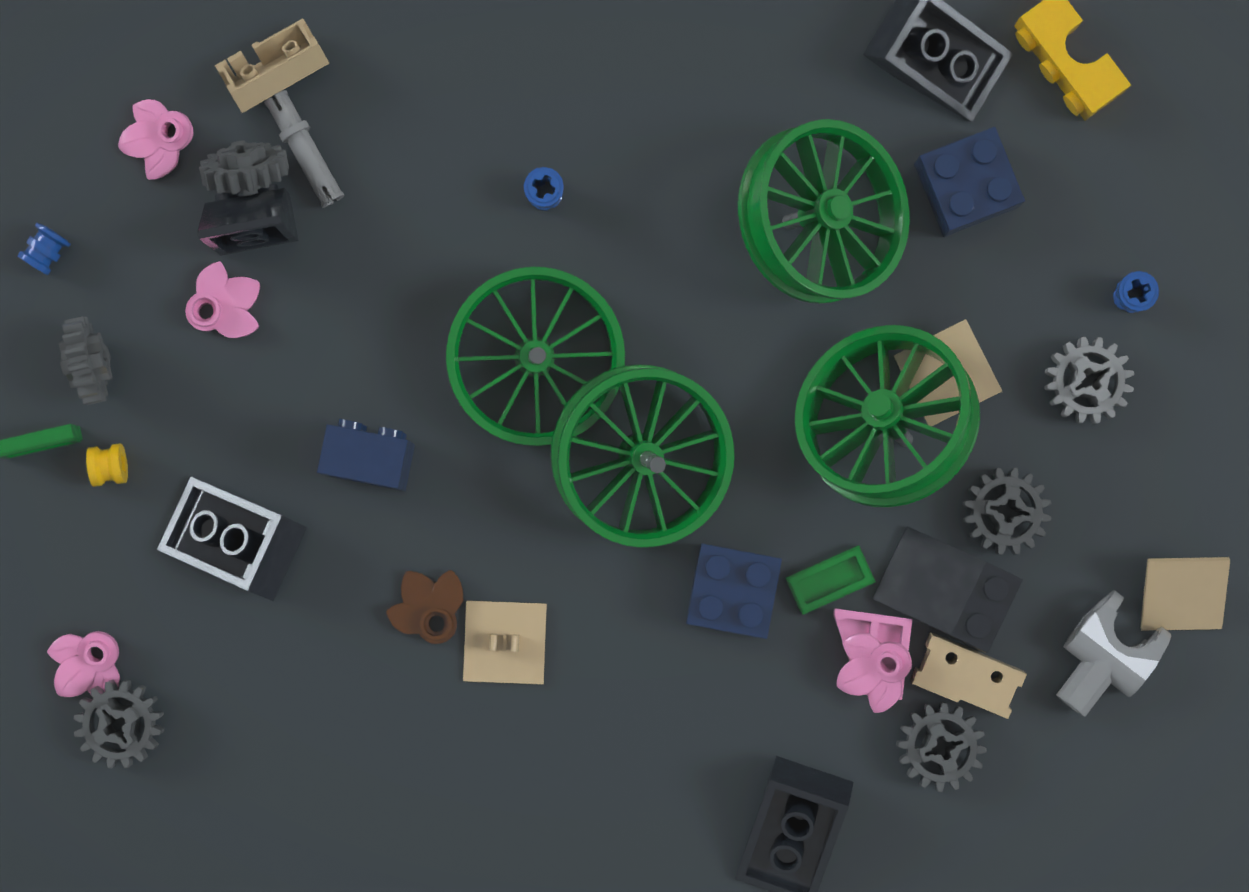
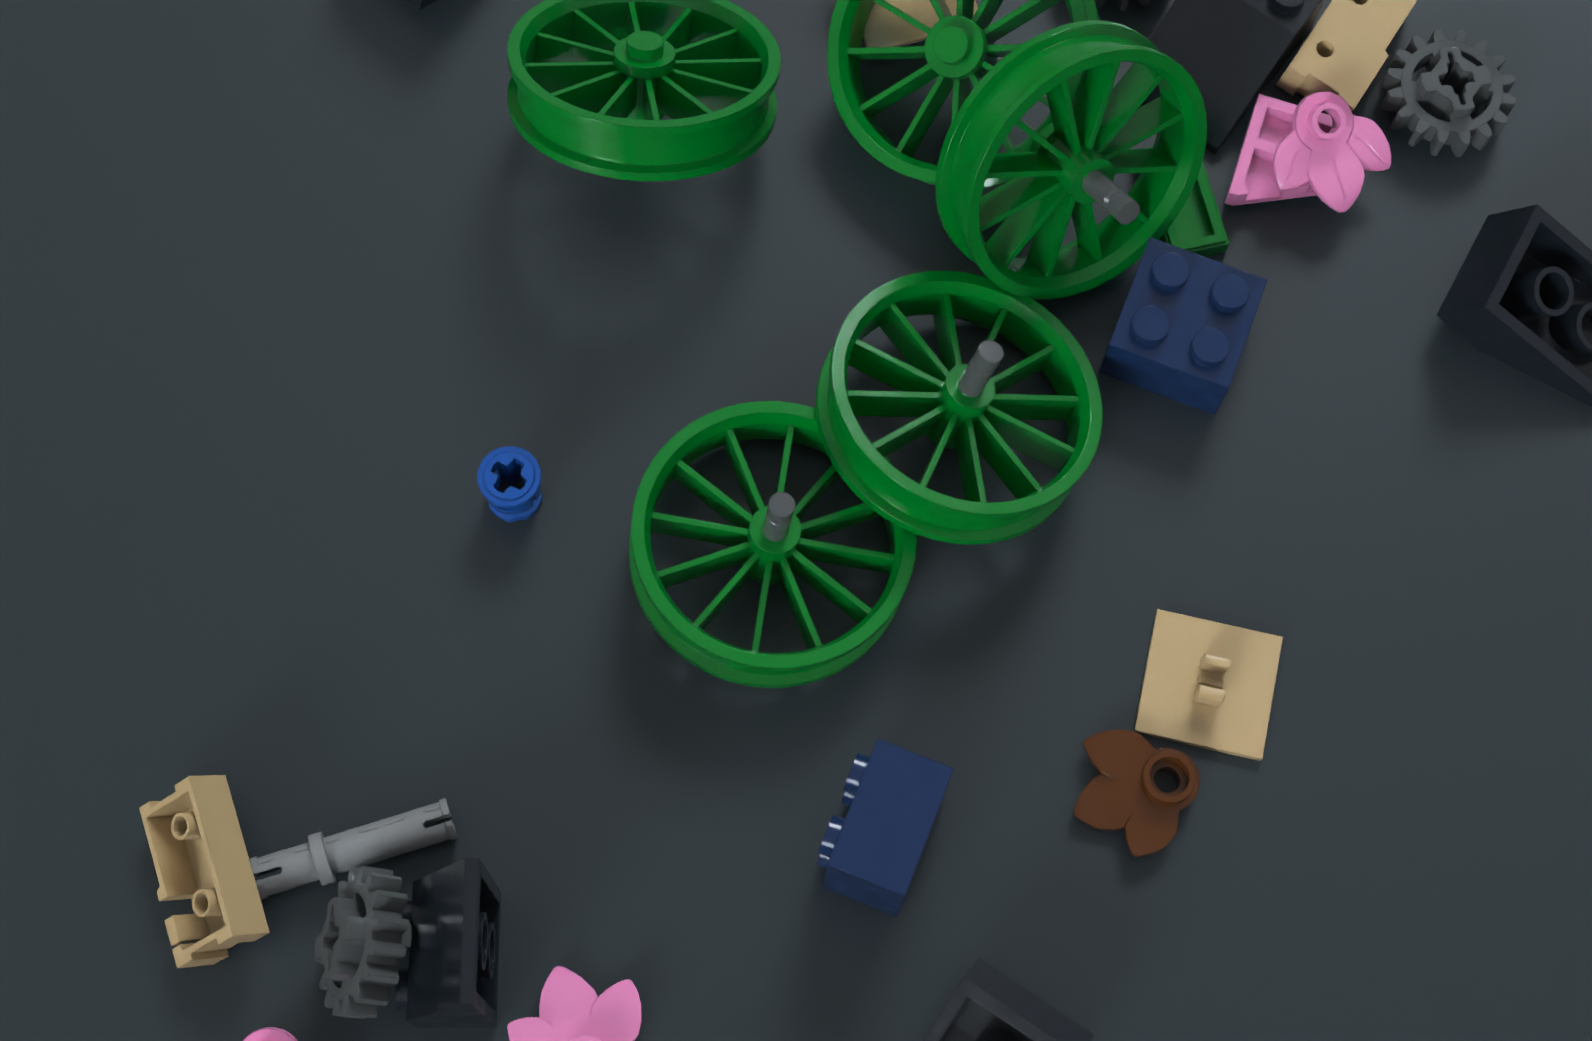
camera: 85 degrees left, 15 degrees down
(796, 506) = (1071, 159): none -> green wheel

